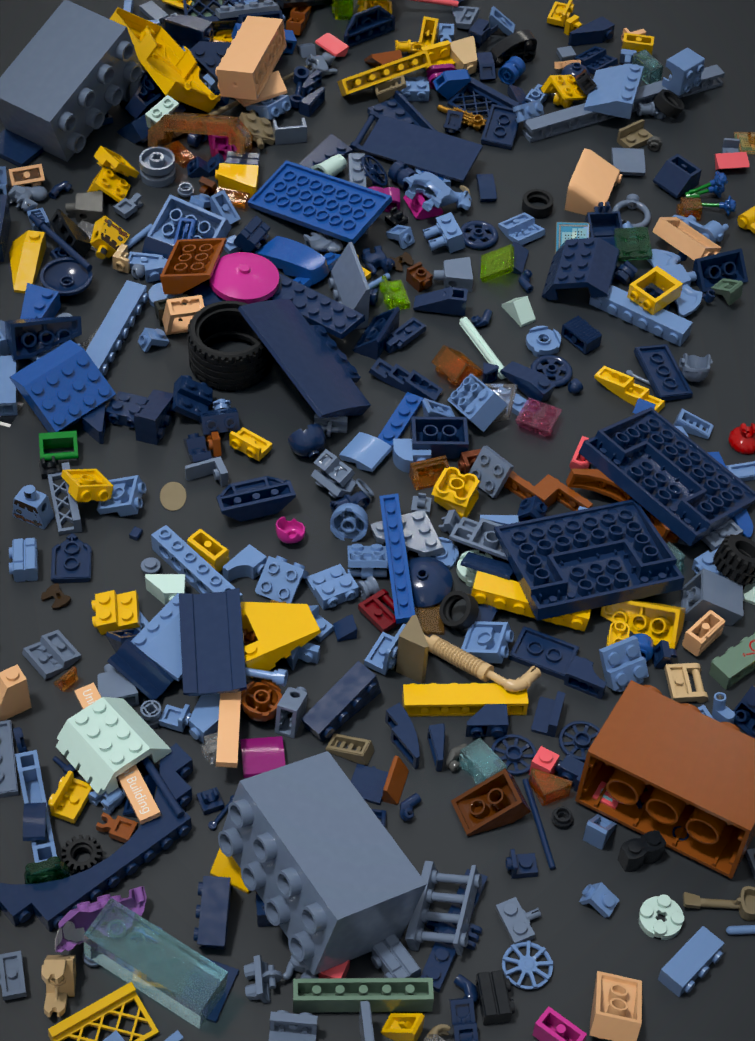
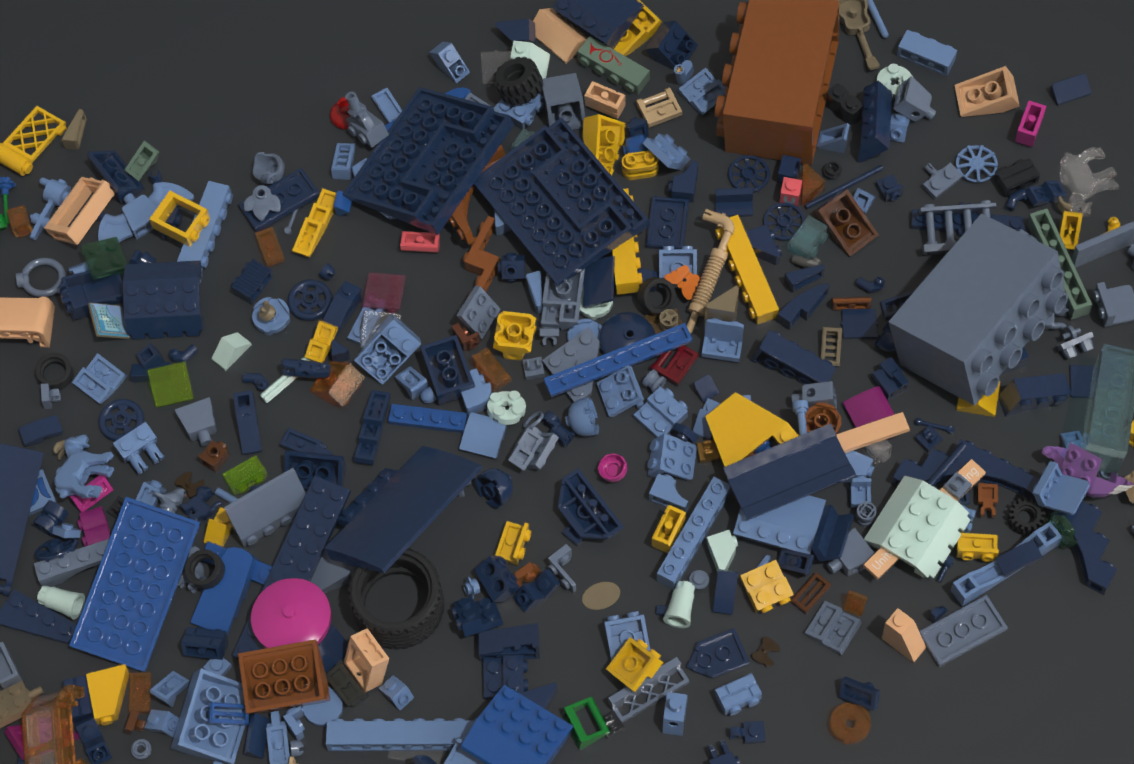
camera: 100 degrees left, 15 degrees up
(86, 877) = (1059, 490): none -> medium blue bracket
(101, 660) = (800, 605): none -> reddish brown tile
(127, 576) = (725, 591): none -> dark blue slope
(130, 541) = (680, 605): none -> light aqua plant
(134, 785) = (957, 485): none -> sand blue tile
(301, 592) = (685, 433): none -> dark blue plate
(304, 237) = (193, 561): none -> black tyre
(386, 178) = (66, 531): none -> medium blue plate
(389, 243) = (171, 500): none -> sand blue animal
(392, 465) = (513, 400): none -> light aqua plate
(432, 612) = (670, 316): none -> dark tan wheel
(466, 637) = (677, 277): none -> orange animal
(477, 343) = (305, 368): none -> dark blue hinge
(499, 358) = (321, 342): none -> yellow slope
(515, 194) = (49, 396): none -> sand blue tile
(517, 836) = (864, 199): none -> medium blue slope
(530, 260) = (150, 356): none -> dark blue slope
(543, 331) = (266, 312): none -> dark tan piece
(610, 868) = (875, 121): none -> dark blue wedge
(613, 354) = (270, 247): none -> clear orange plate
(623, 917) = (913, 100): none -> sand blue torso
(660, 354) = (262, 204): none -> sand blue plate
(725, 437) = (363, 123): none -> sand blue brick

